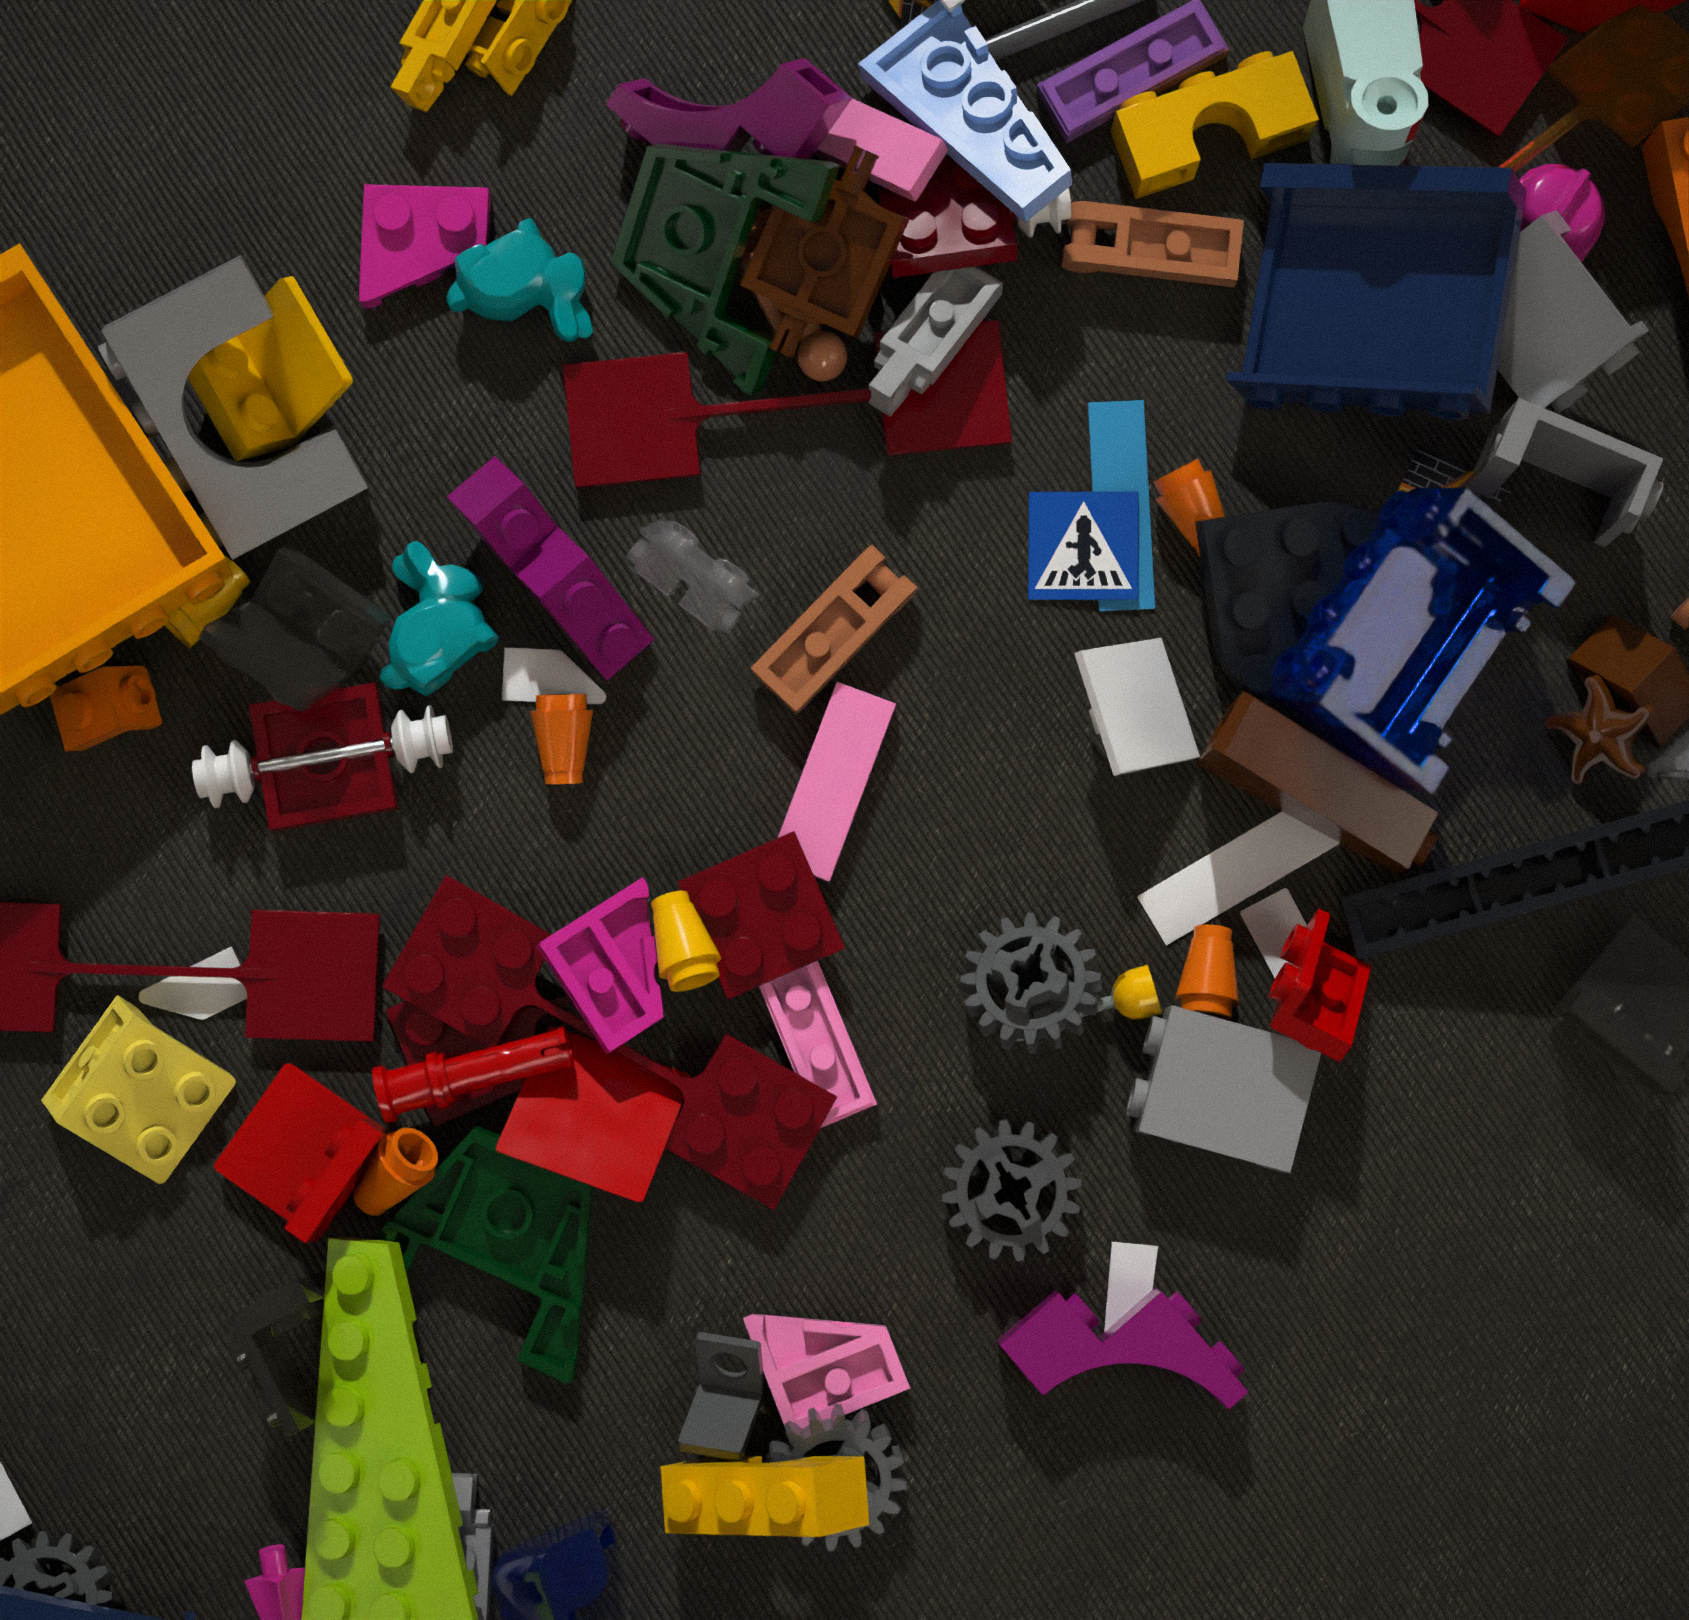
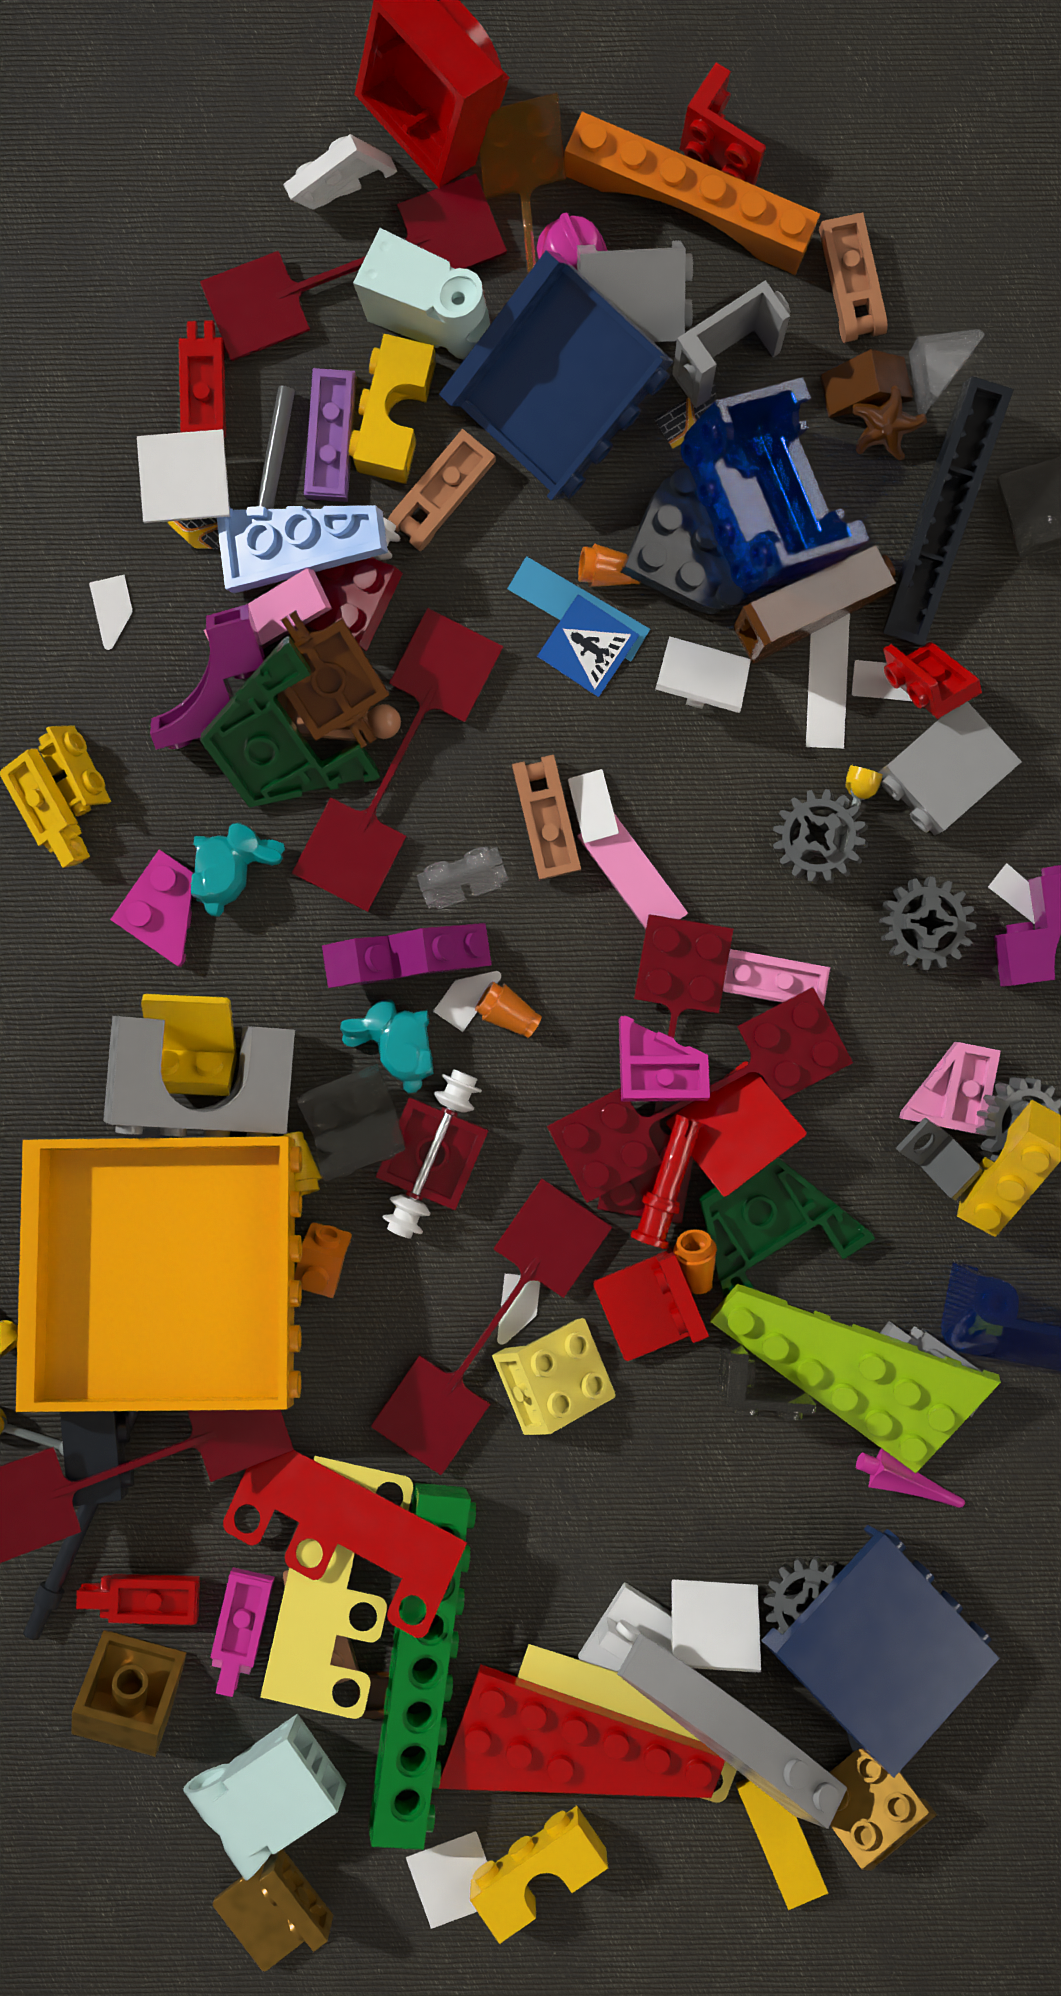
camera: 60 degrees left, 5 degrees up
(682, 943) = (673, 1017): yellow cone -> none
(886, 678) = (593, 806): none -> white sticker
(931, 333) = (413, 650): light grey hinge -> none
(1209, 973) = (879, 735): orange cone -> none

